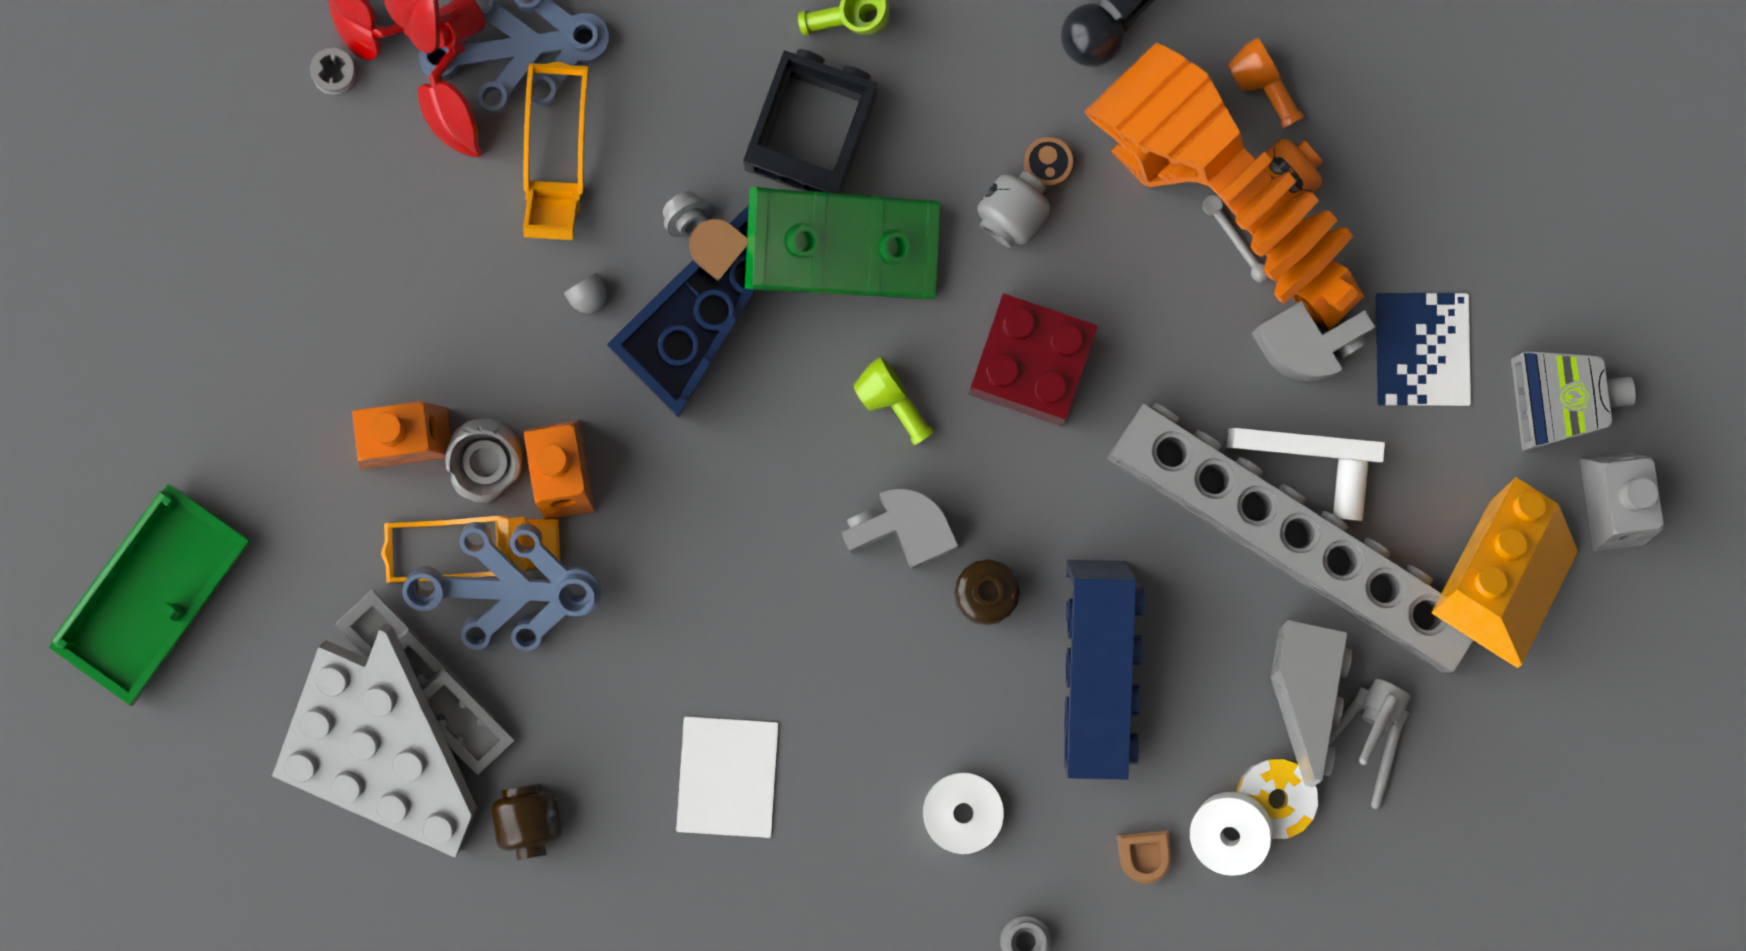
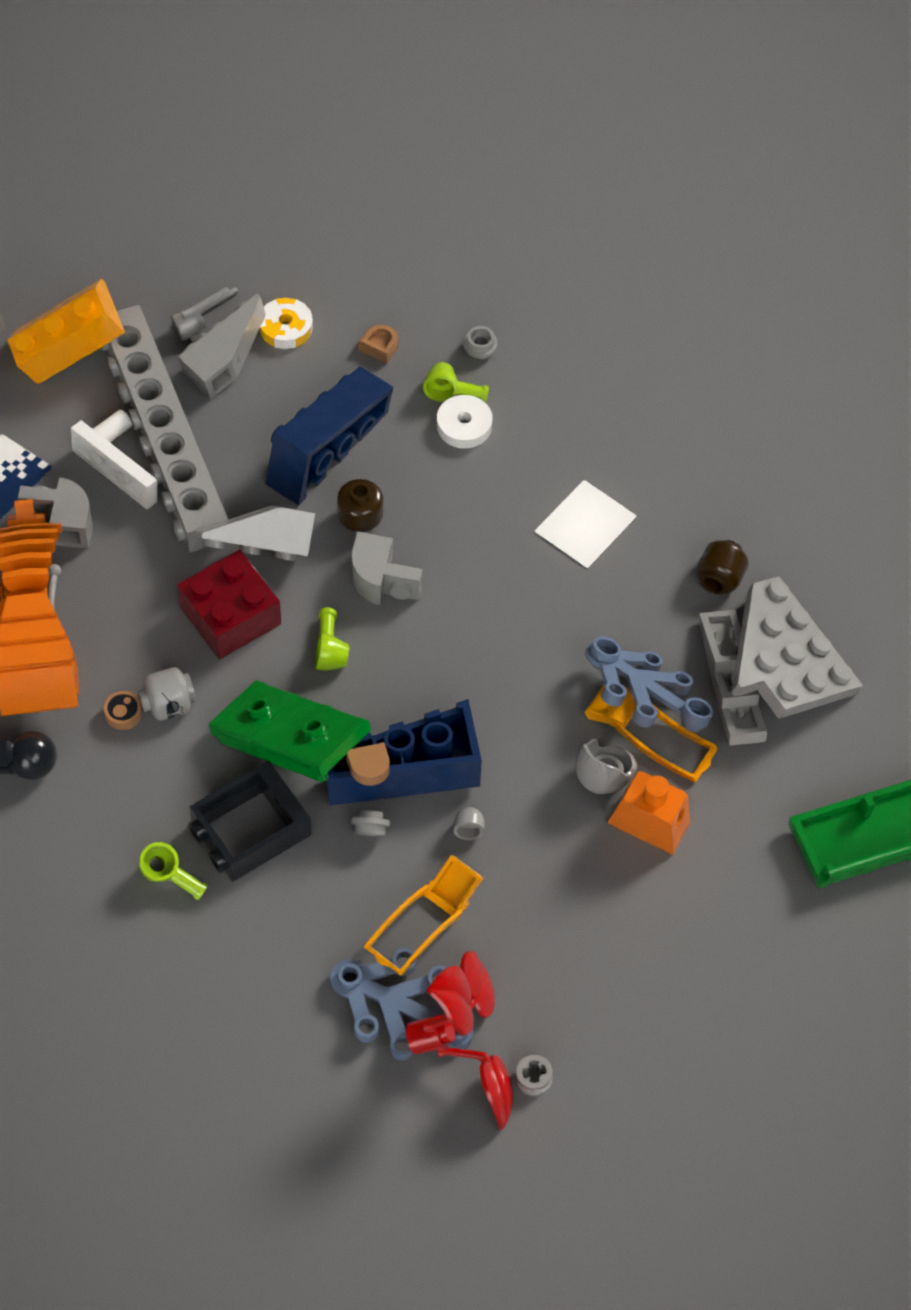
camera: 145 degrees left, 25 degrees down
(559, 469) = (566, 722): orange torso -> none
(1024, 845) = (442, 384): none -> lime bar
(1061, 469) = (269, 528): none -> light grey slope
(1227, 855) = (313, 314): white piece -> none

